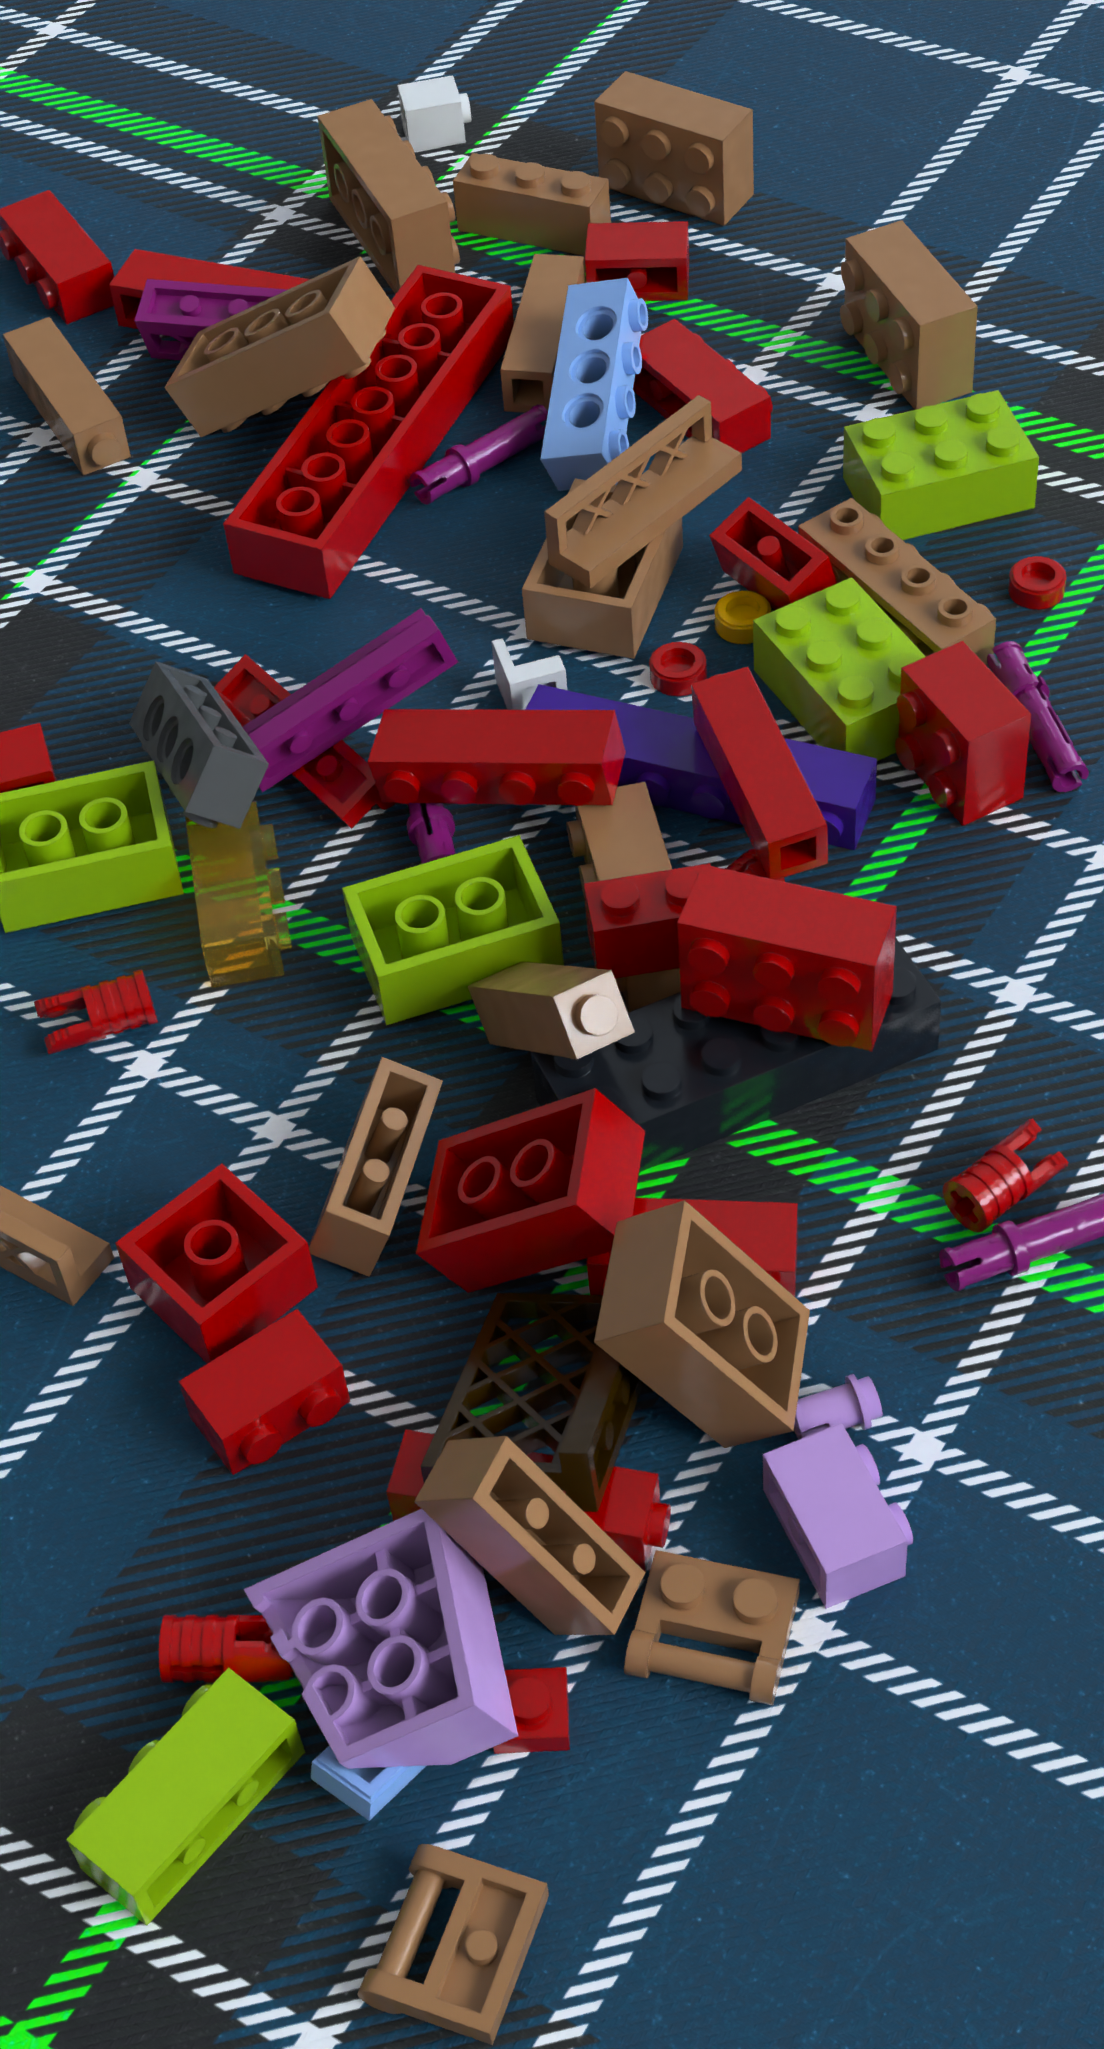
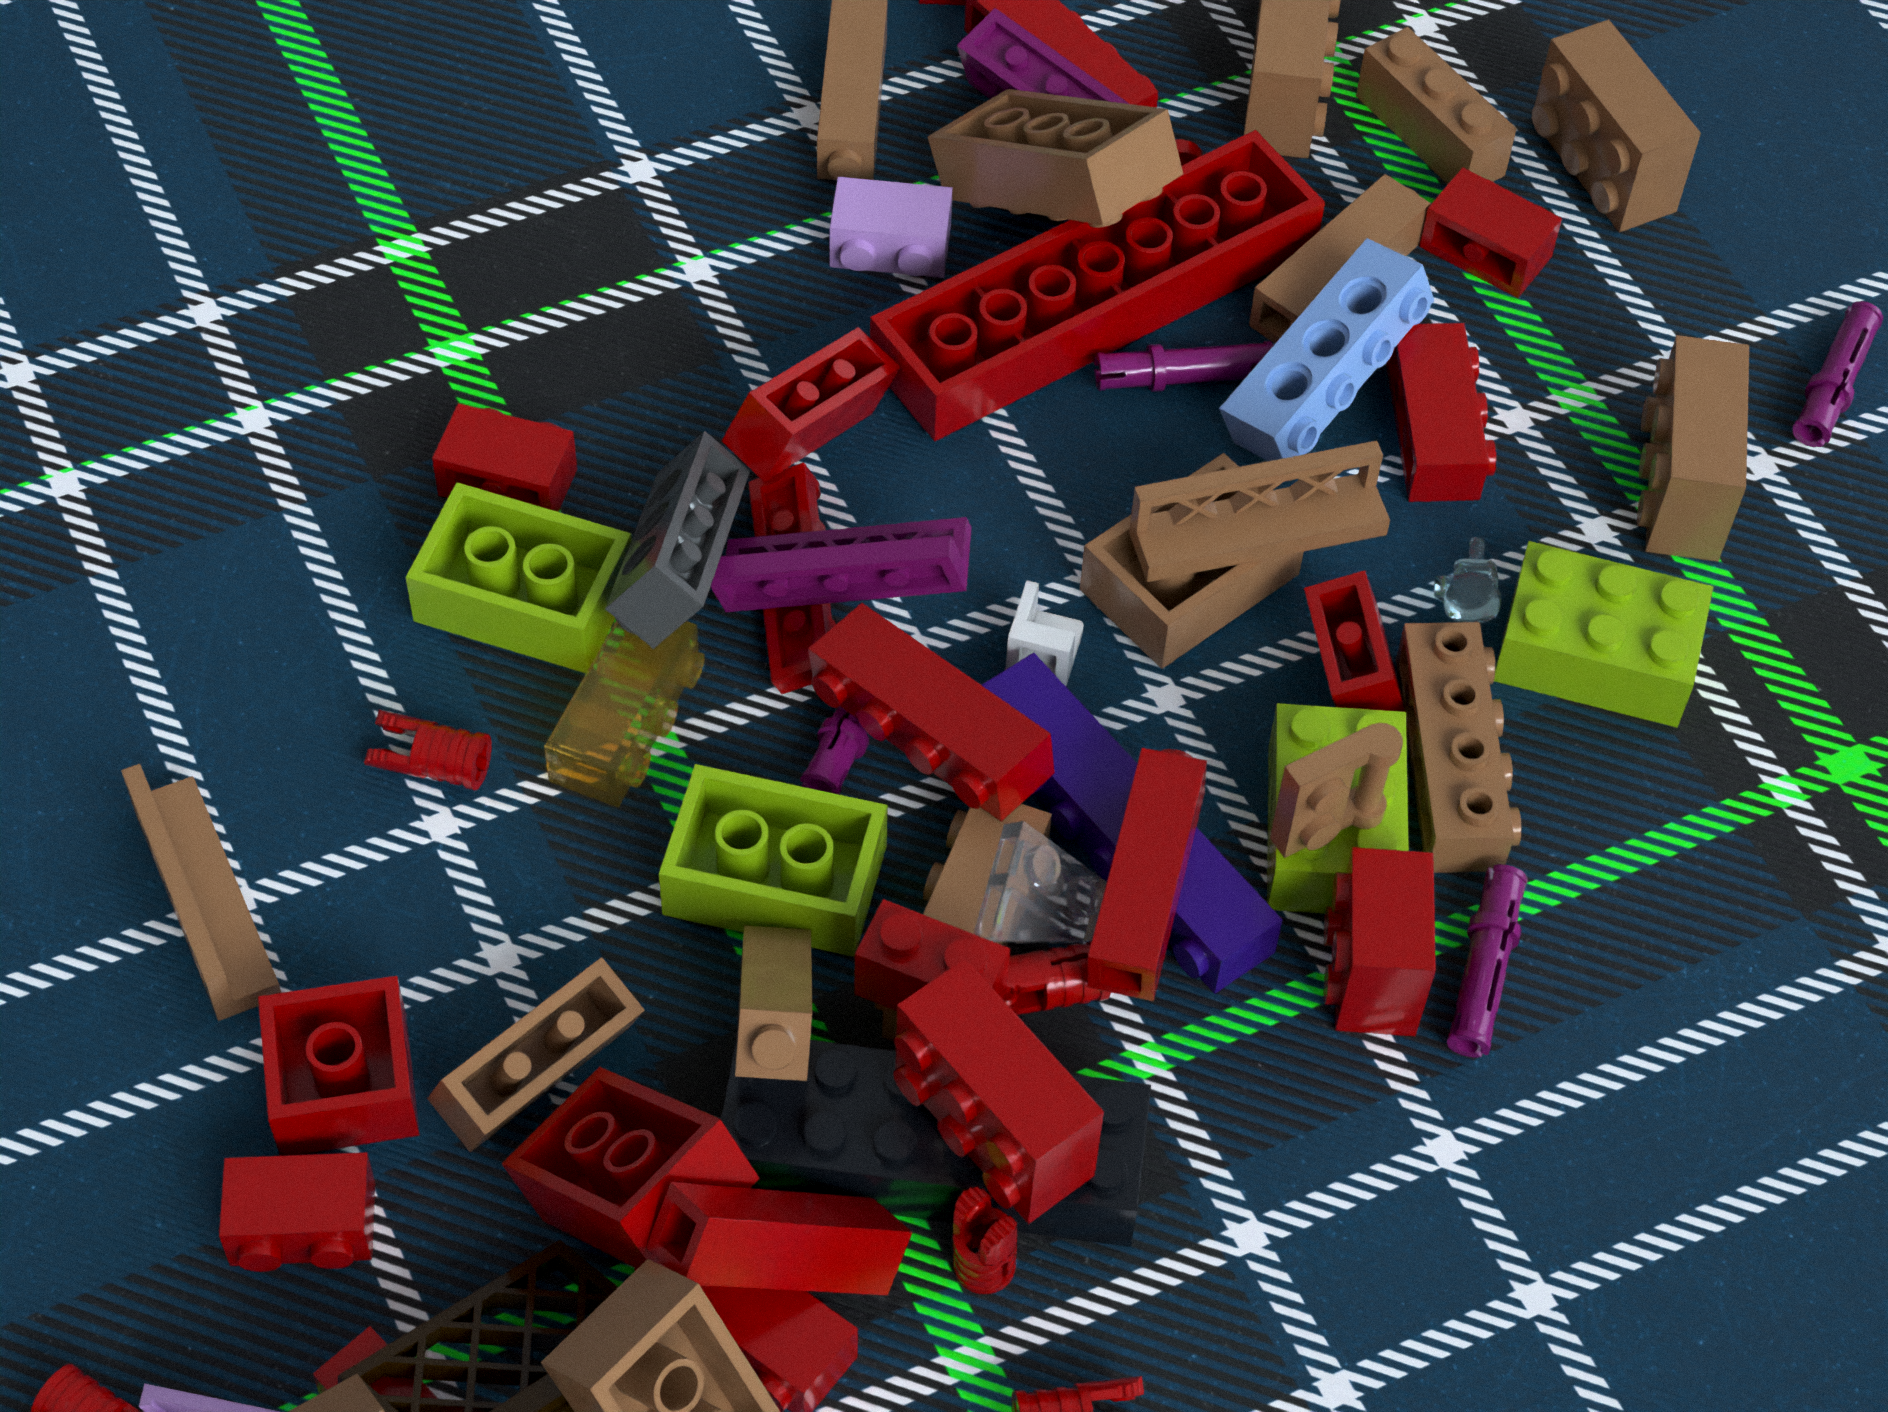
camera: 25 degrees right, 5 degrees up
(177, 471) = (890, 227): none -> lavender brick
(221, 608) = (810, 404): none -> red brick
(676, 667) = (1194, 704): red tile -> none
(678, 831) = (1038, 892): none -> clear wing
(694, 1164) = (778, 1239): none -> red brick
(736, 614) = (1296, 680): yellow tile -> none
(817, 487) = (1473, 589): none -> clear light blue piece
(839, 1096) = (995, 1237): none -> red hinge
(863, 629) = (1317, 793): none -> medium nougat plate
(960, 243) = (1832, 388): none -> magenta pin
(1037, 582) = (1609, 813): red tile -> none

